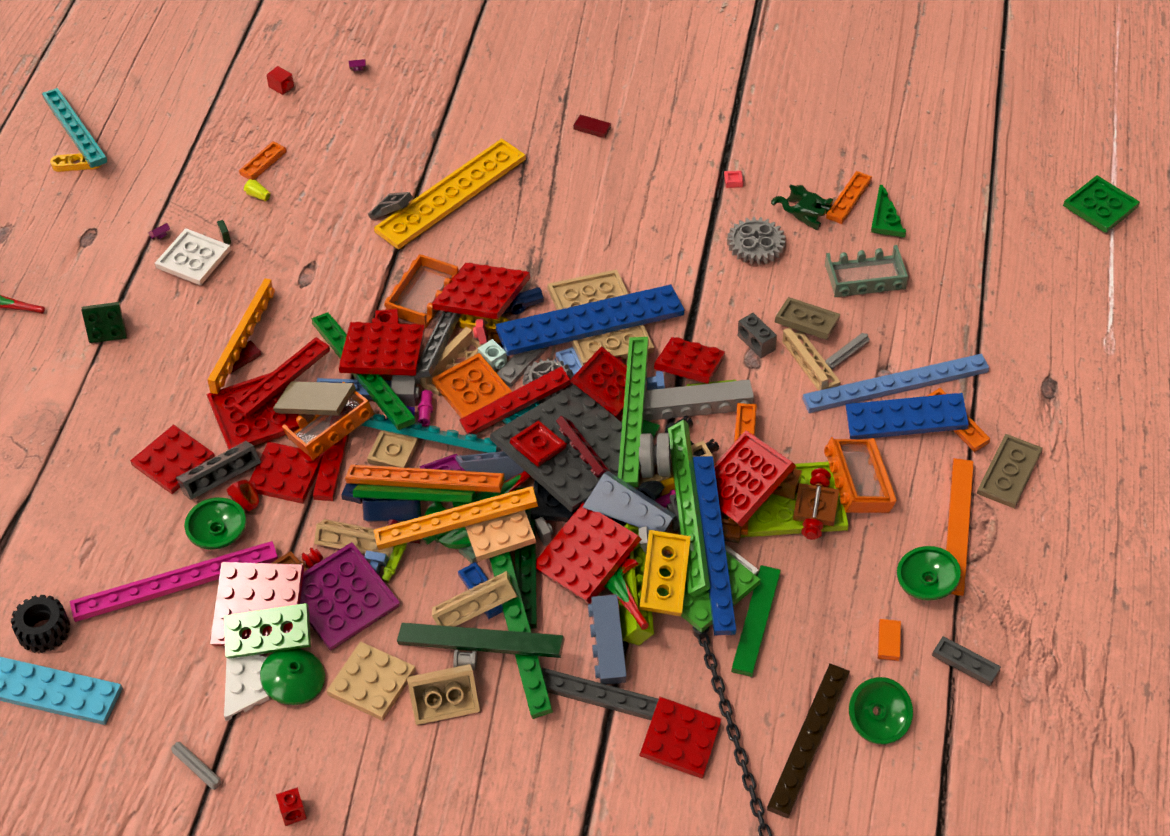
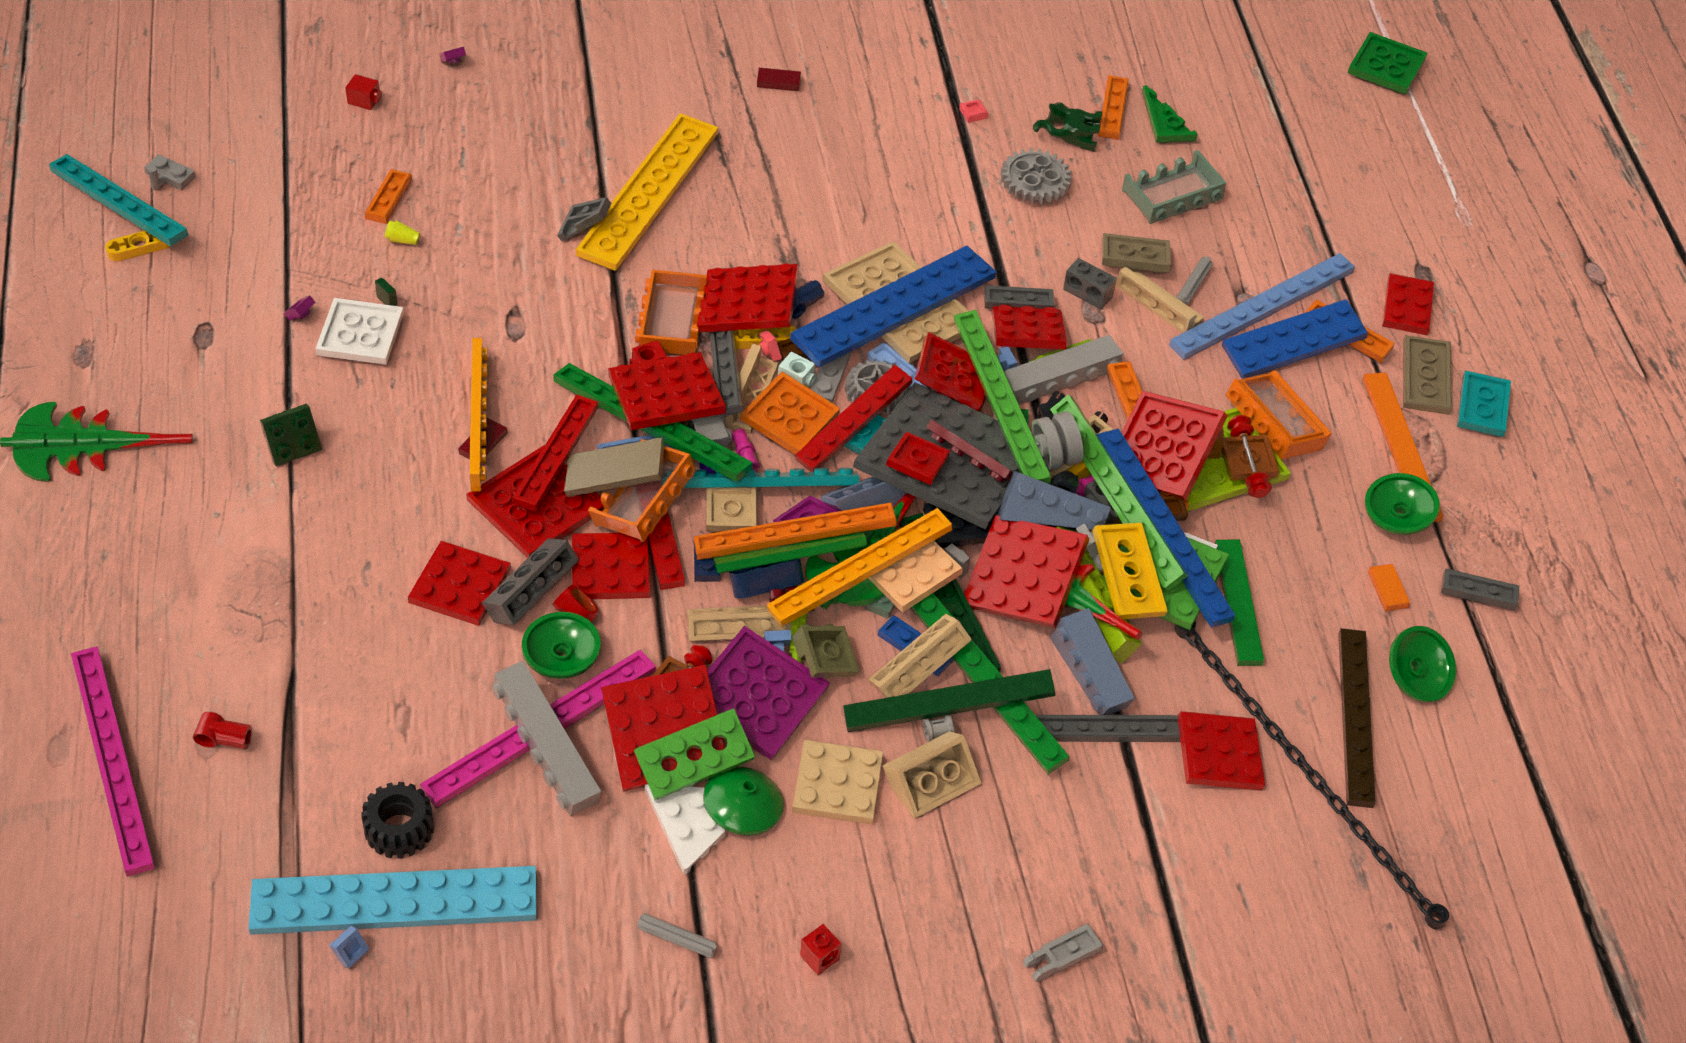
camera: 25 degrees left, 0 degrees up
(119, 113) = (163, 170): none -> light grey plate
(169, 591) = (546, 738): none -> light grey brick
(406, 577) = (826, 650): none -> olive plate
(695, 334) = (1018, 297): none -> dark grey plate
(1022, 408) = (1408, 304): none -> red plate
(1046, 506) = (1484, 403): none -> teal plate

